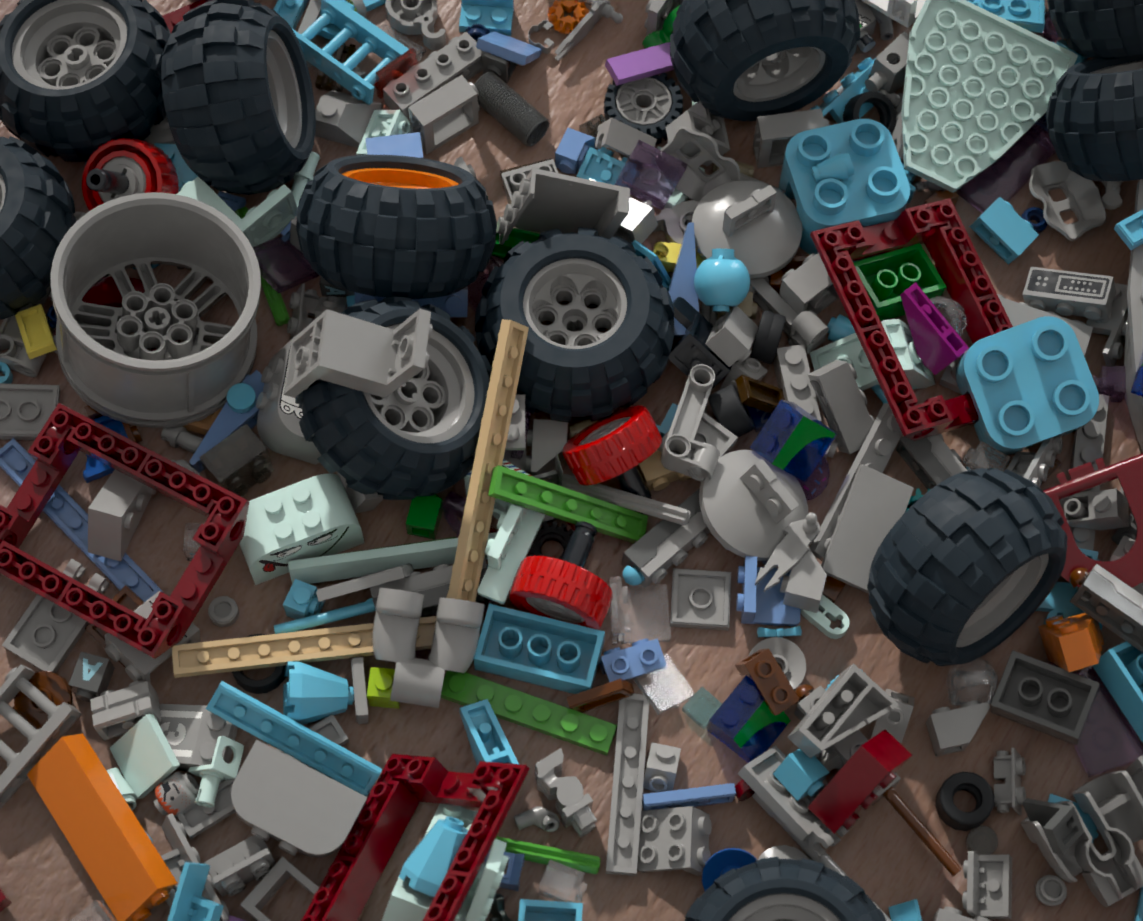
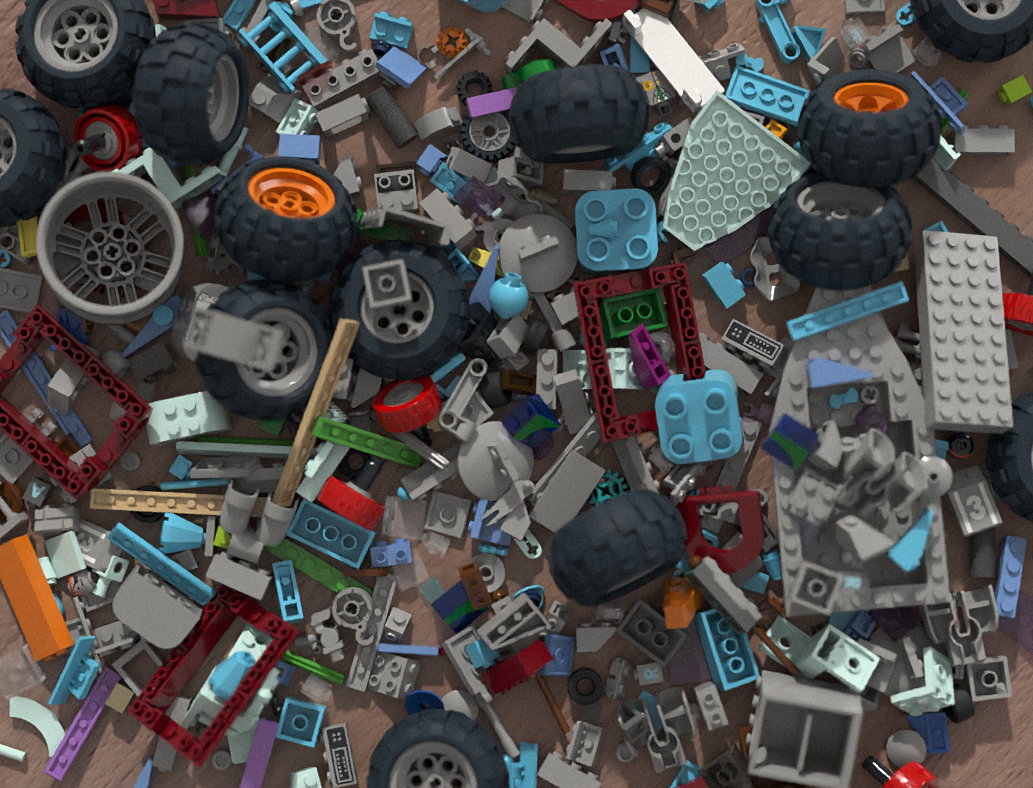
camera: 15 degrees right, 20 degrees up
(415, 732) = (240, 575): none -> light grey brick
(558, 266) = (387, 284): none -> light grey slope
(569, 104) = (437, 122): none -> light grey brick
(599, 765) = (354, 620): none -> light grey piece
(601, 50) = (469, 78): none -> black tyre
(660, 393) = (448, 367): none -> medium azure bracket
(693, 638) = (435, 543): none -> clear brick
(919, 770) = (562, 651): none -> medium blue tile
(1052, 763) = (648, 673): none -> light grey brick

